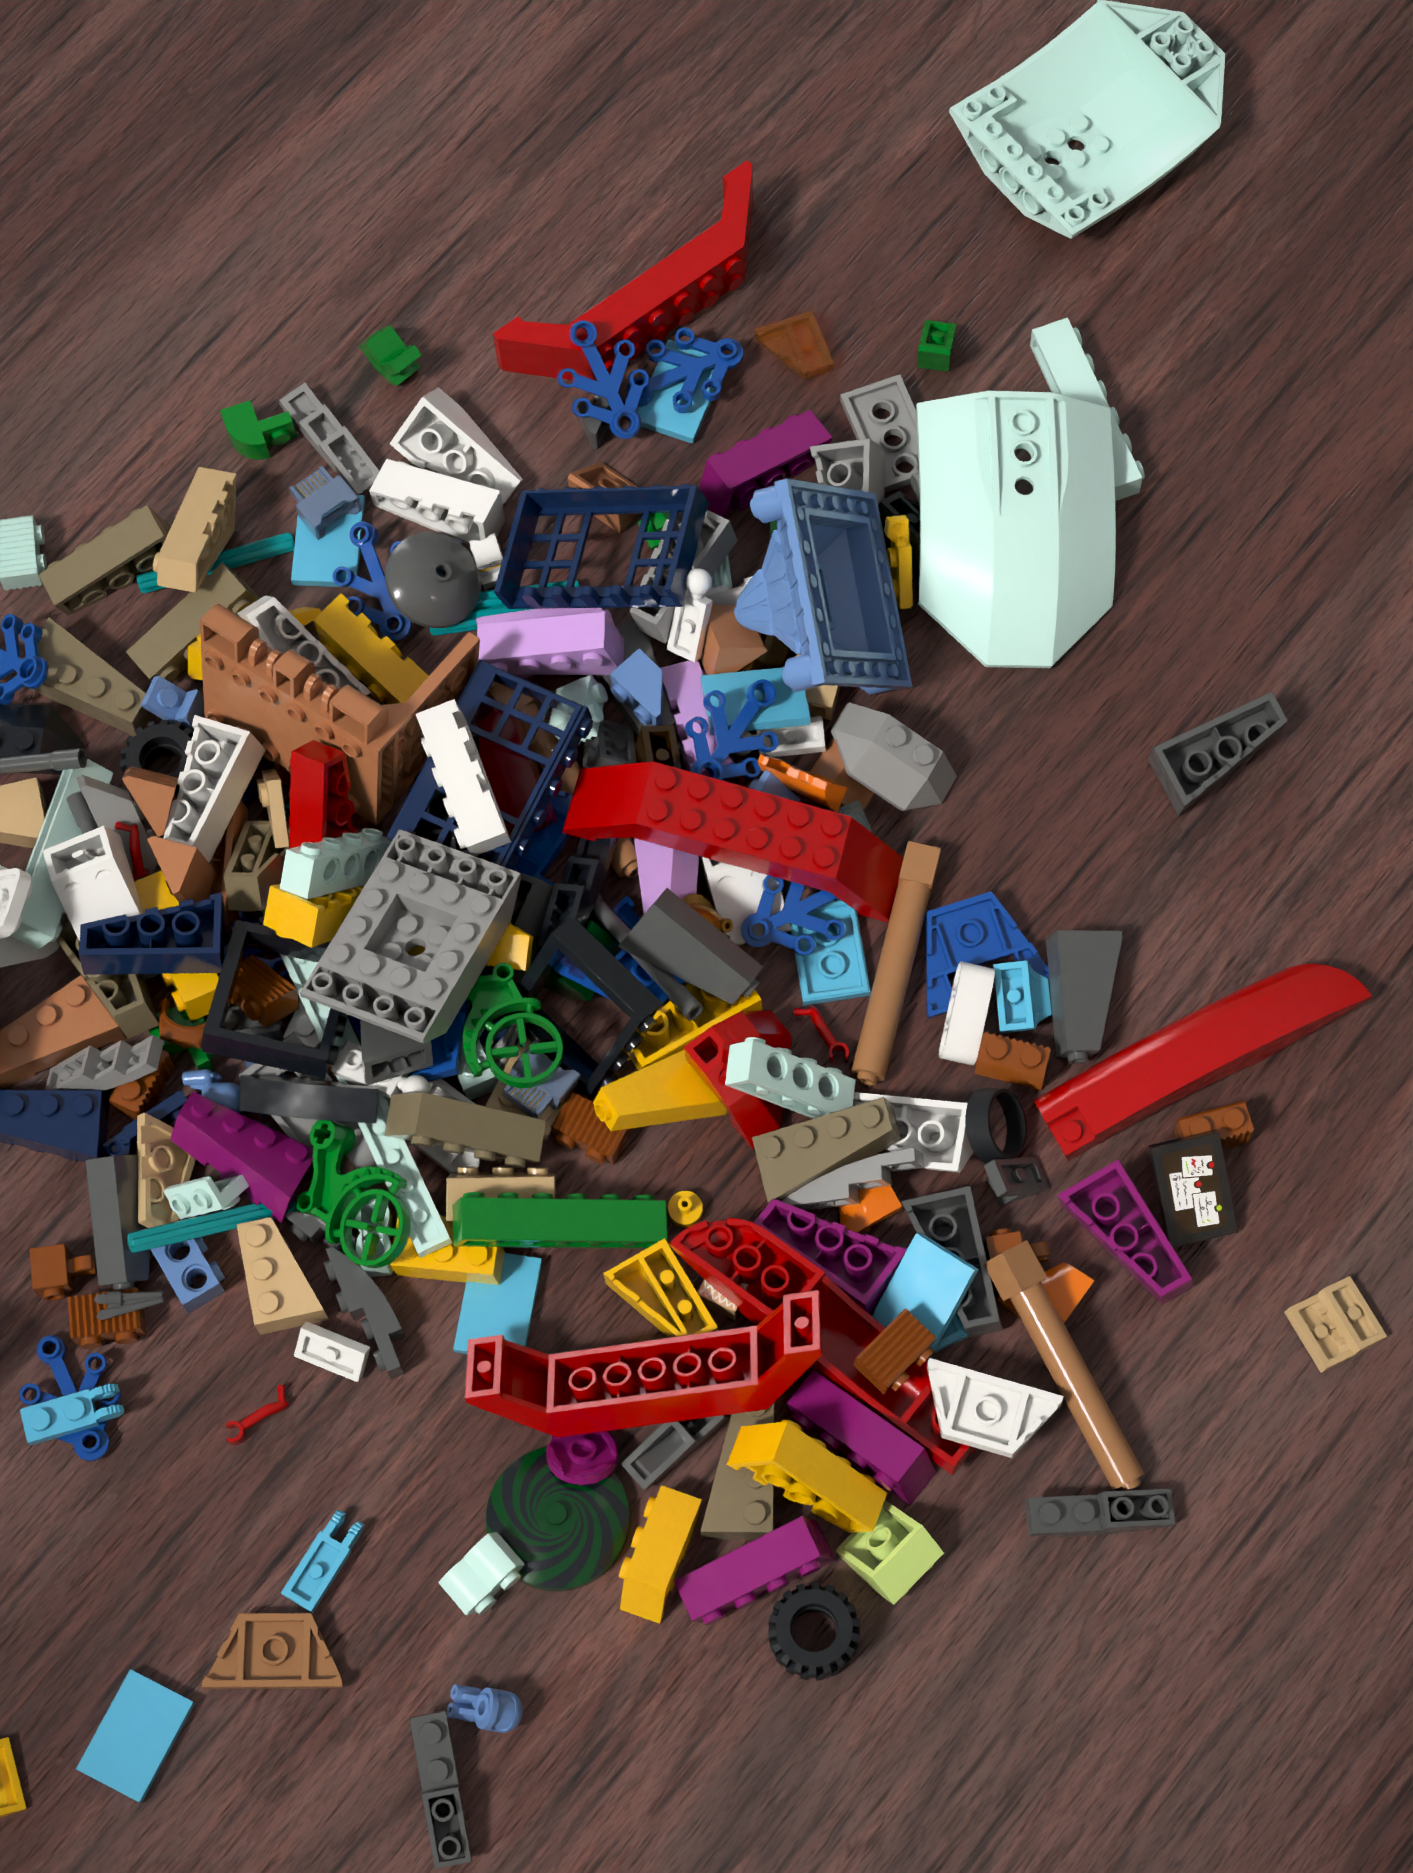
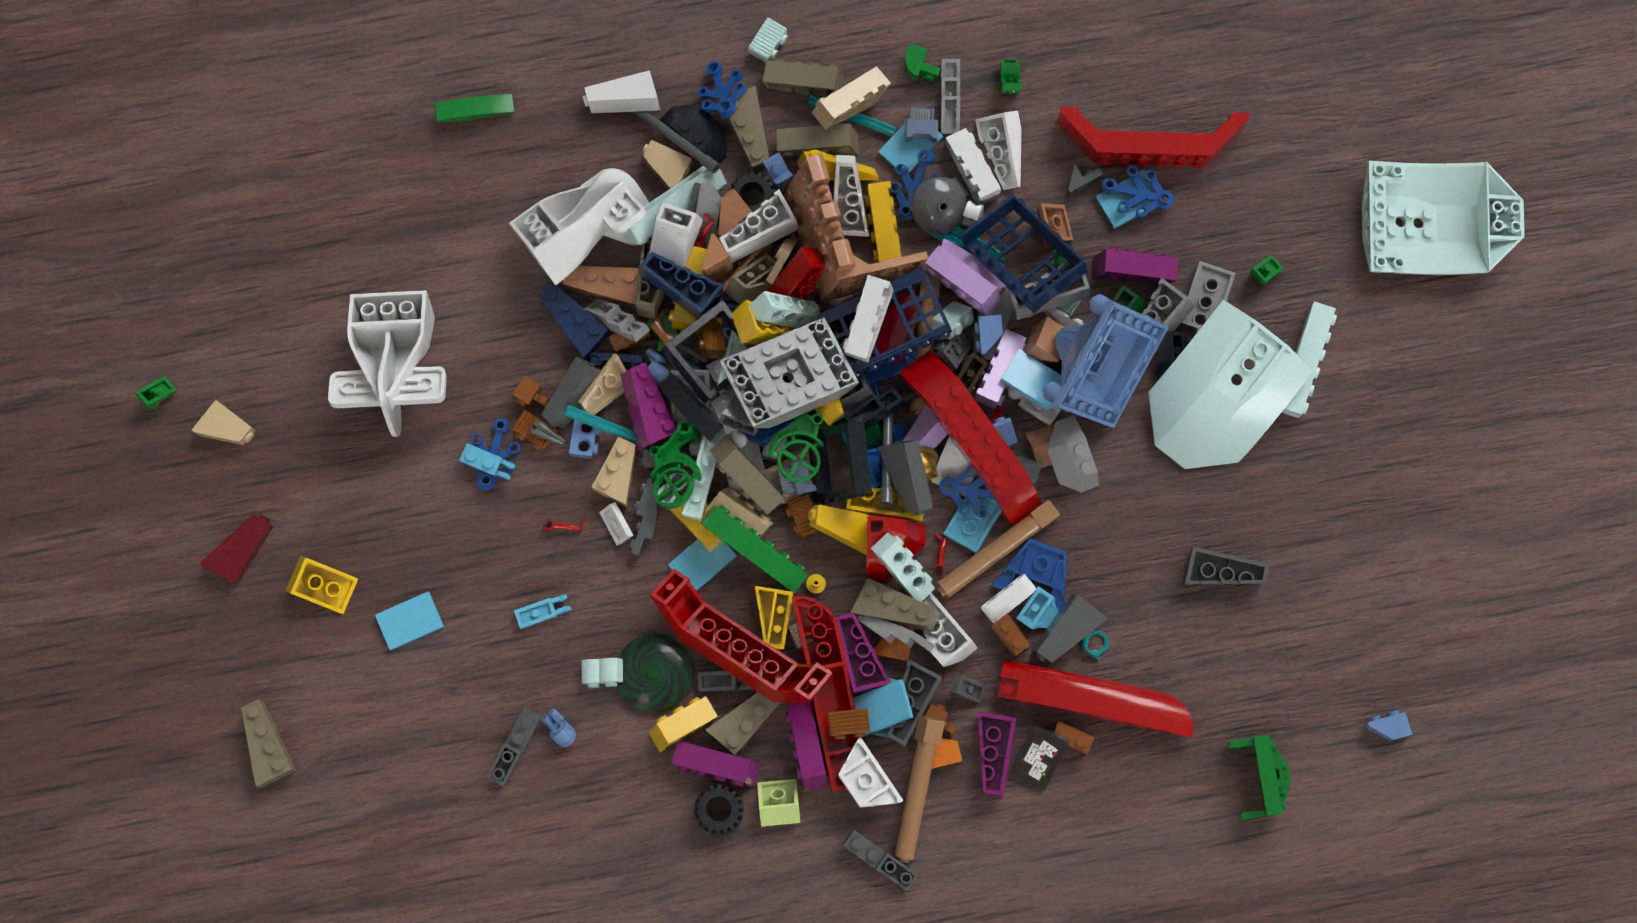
camera: 35 degrees right, 10 degrees up
(204, 1195) = (615, 413): light aqua bracket -> none
(274, 1654) = (491, 633): medium nougat wing -> none
(589, 1461) = (683, 657): magenta tile -> none
(606, 385) = (1093, 172): blue plant -> none
(692, 620) = (1034, 322): white plate -> none
(729, 740) = (1004, 391): blue plant -> none
(797, 344) = (1201, 219): clear orange wing -> none
(807, 784) = (1027, 441): orange slope -> none
(809, 1474) = (769, 744): yellow wedge -> none
(900, 559) = (1155, 365): yellow hinge -> none
(978, 1124) = (968, 653): black tyre -> none
(1146, 995) = (1096, 653): none -> teal piece
(1335, 1324) = (1051, 864): tan slope -> none

